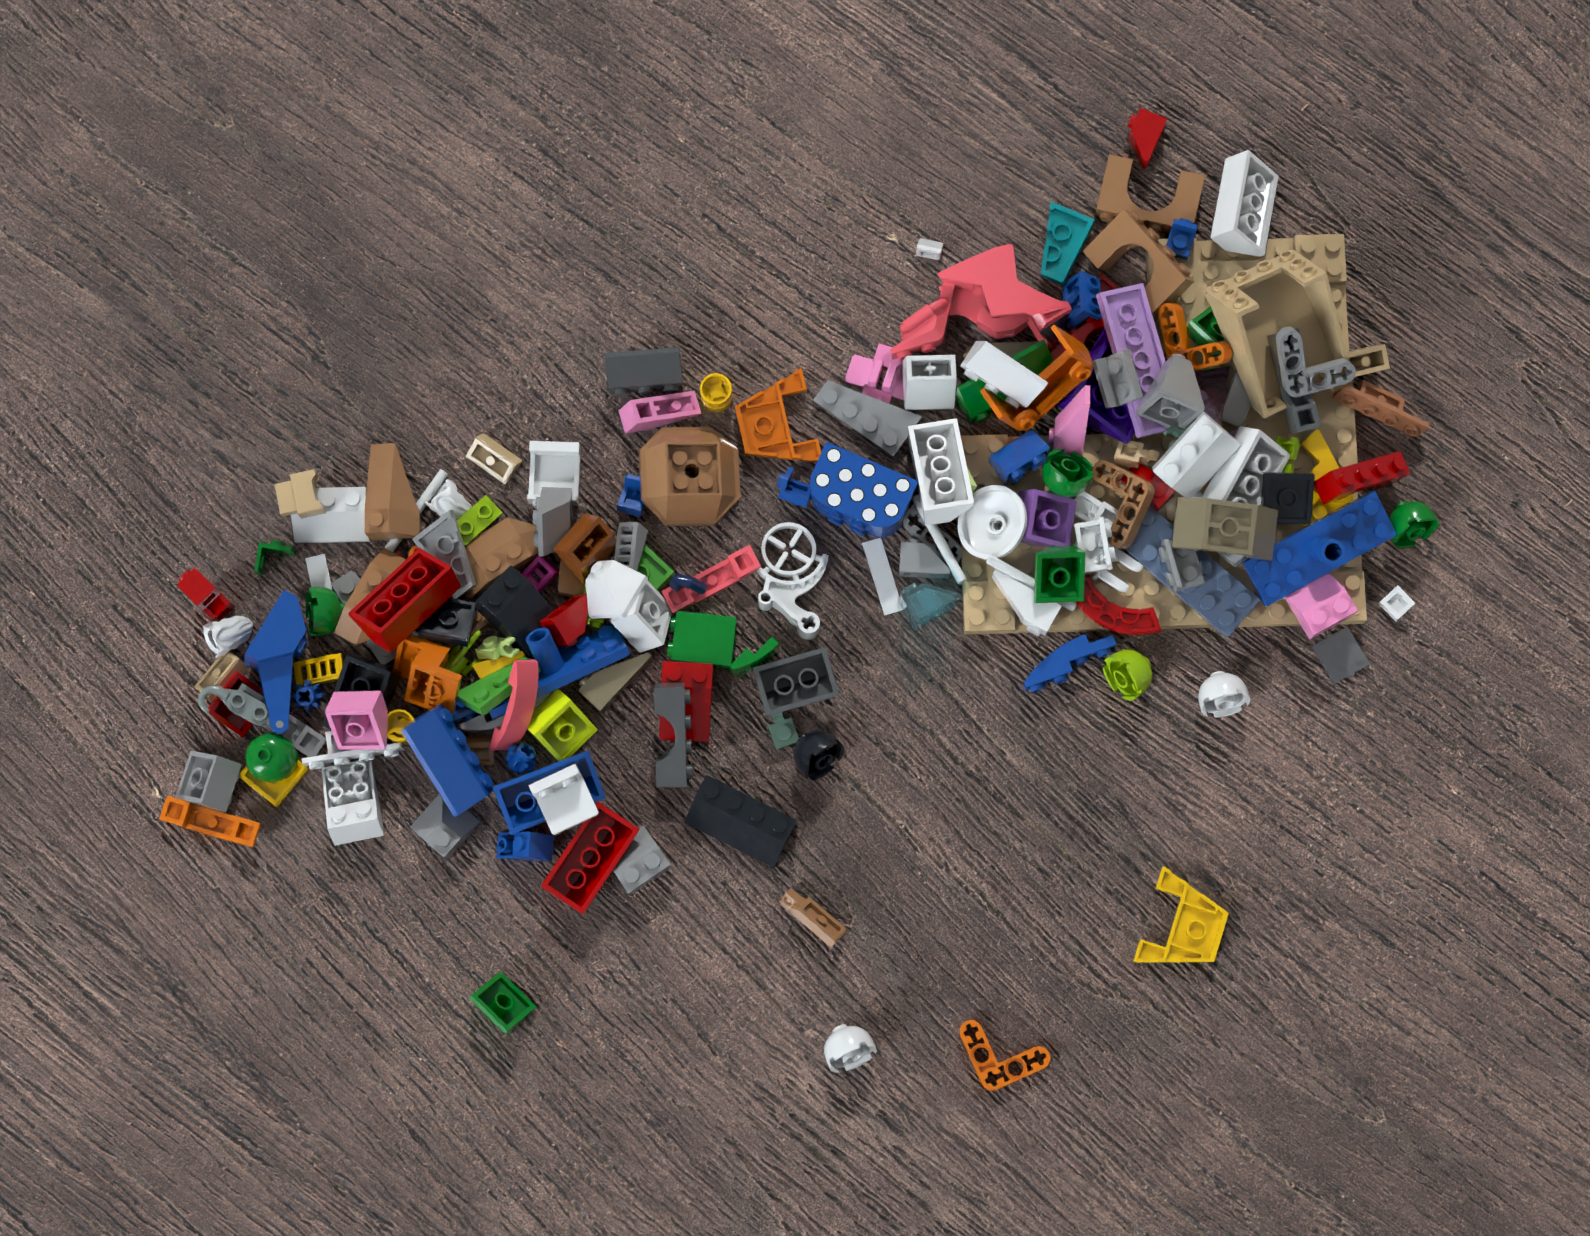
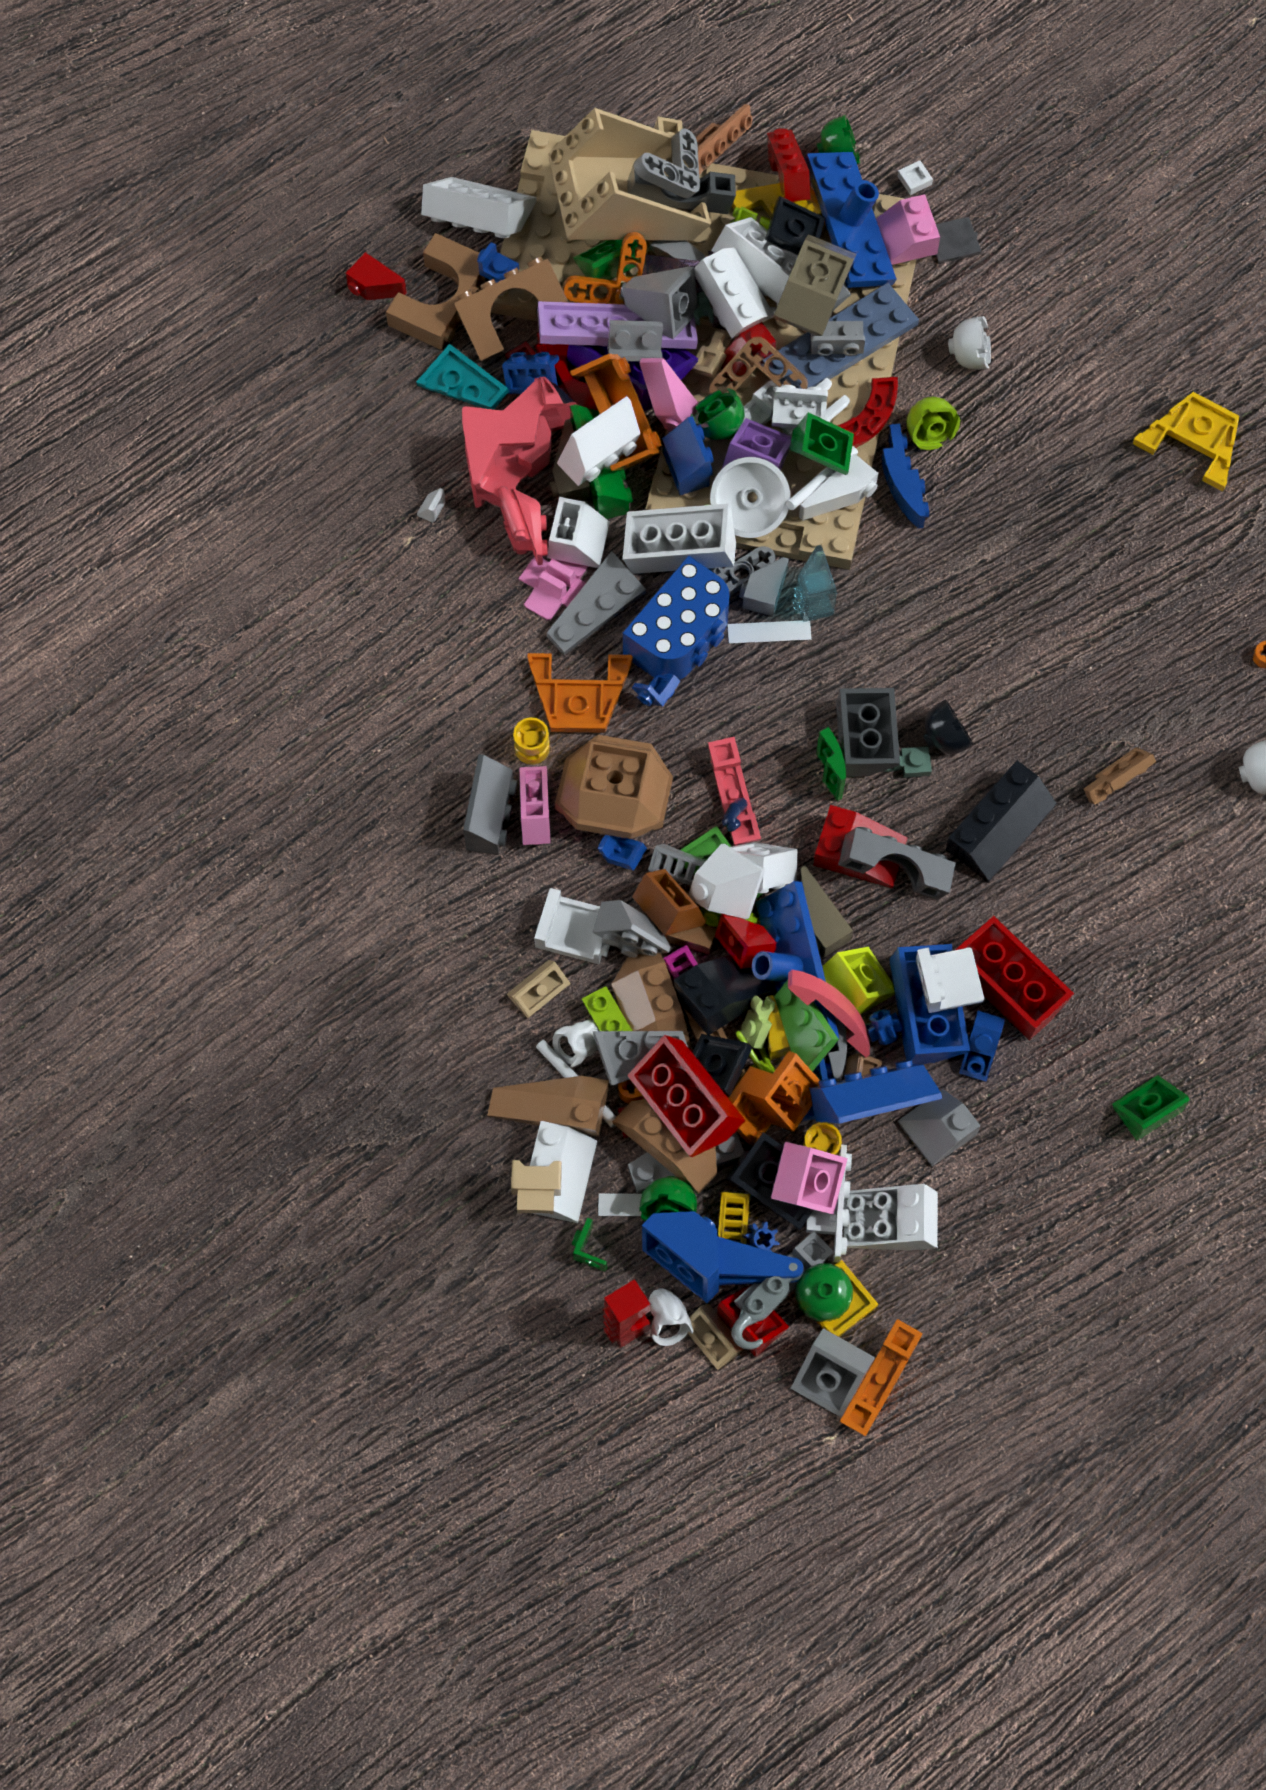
camera: 80 degrees left, 10 degrees down
(641, 863) = (1031, 926): light grey slope -> none
(703, 639) = (798, 814): green brick -> none
(783, 593) = (766, 728): white piece -> none
(942, 546) = (760, 558): white bar -> none

